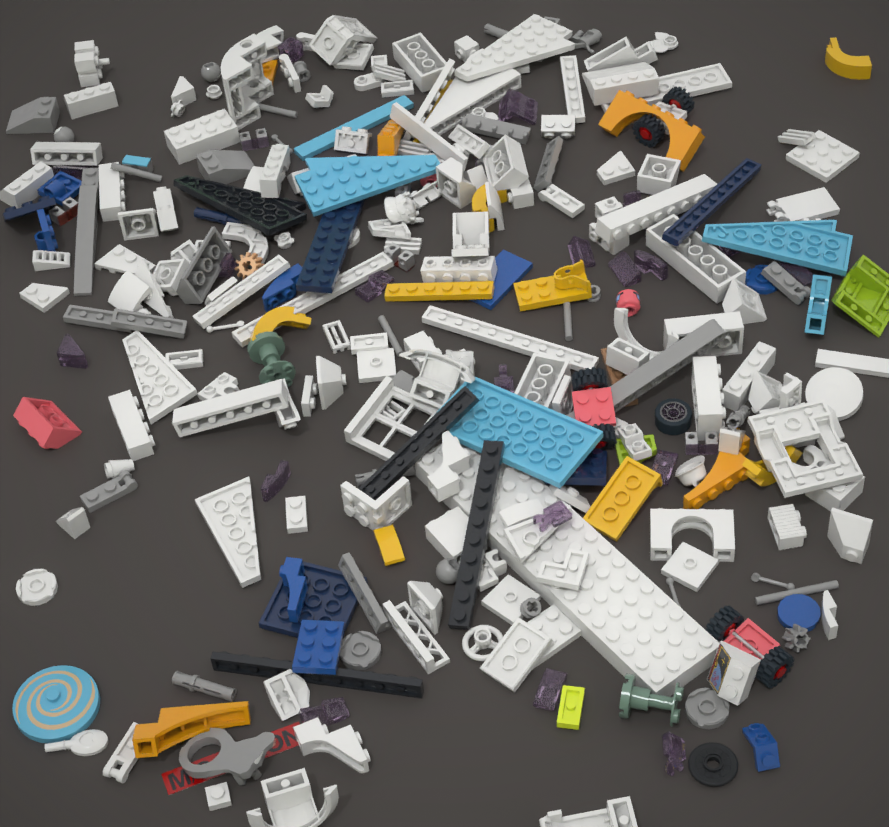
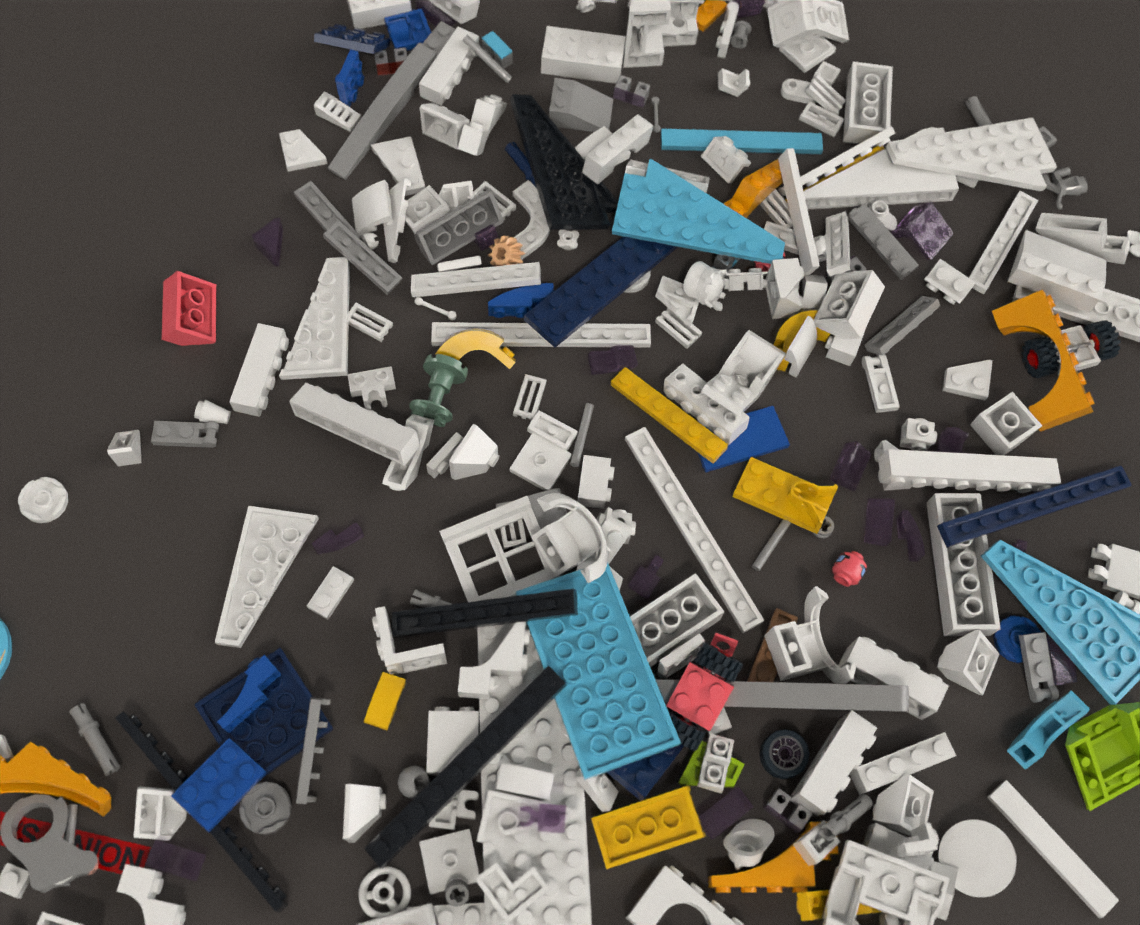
camera: 25 degrees right, 20 degrees up
(276, 110) = (680, 66): light grey bar -> none
(400, 259) = (663, 349): flat silver piece -> none
(412, 639) = (317, 833): white fence -> none
(465, 47) = (929, 114): white brick -> none

